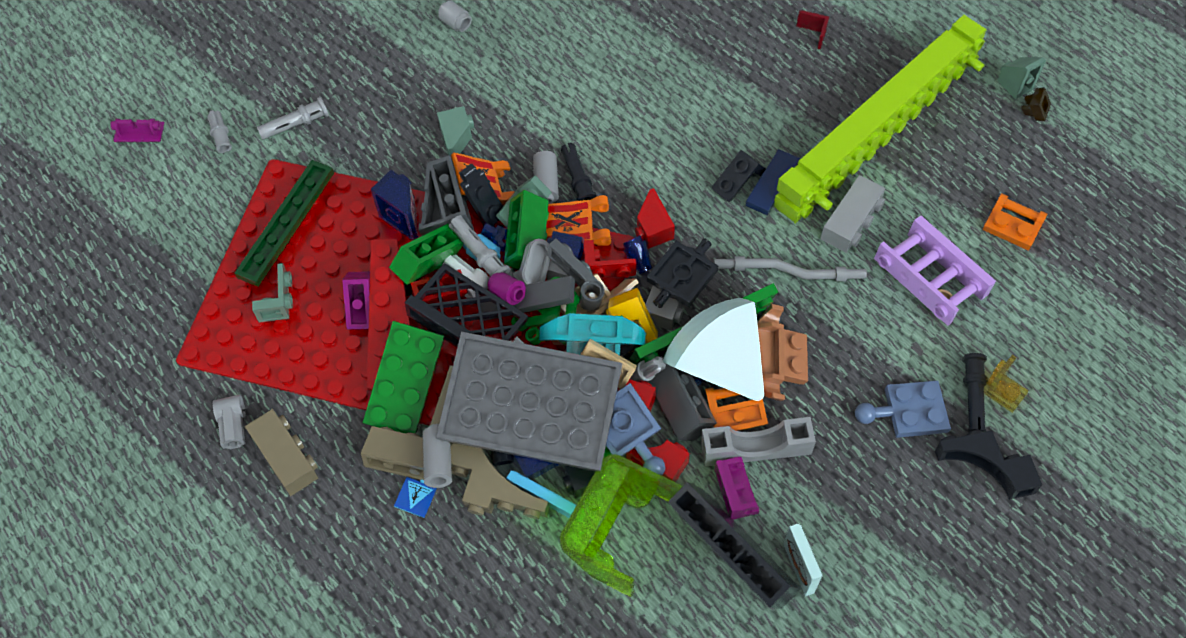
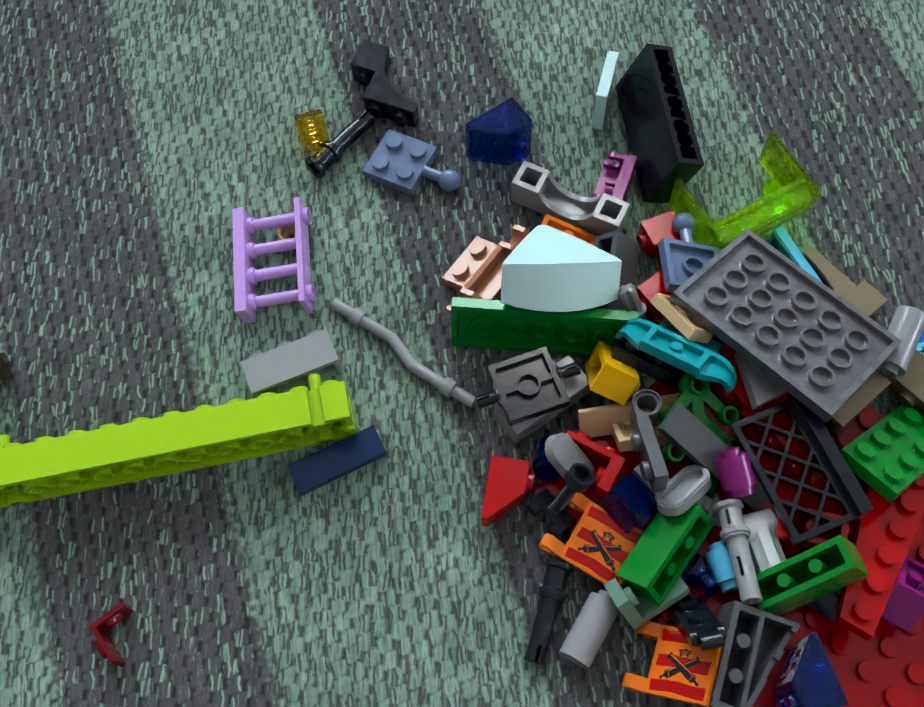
camera: 145 degrees left, 5 degrees up
(608, 224) = (577, 480): none -> black bar
(622, 247) = (564, 452): none -> light grey tile
(737, 175) = (367, 484): black bracket -> none
(851, 463) = (499, 135): none -> clear blue slope
(1012, 228) = (156, 264): orange plate -> none

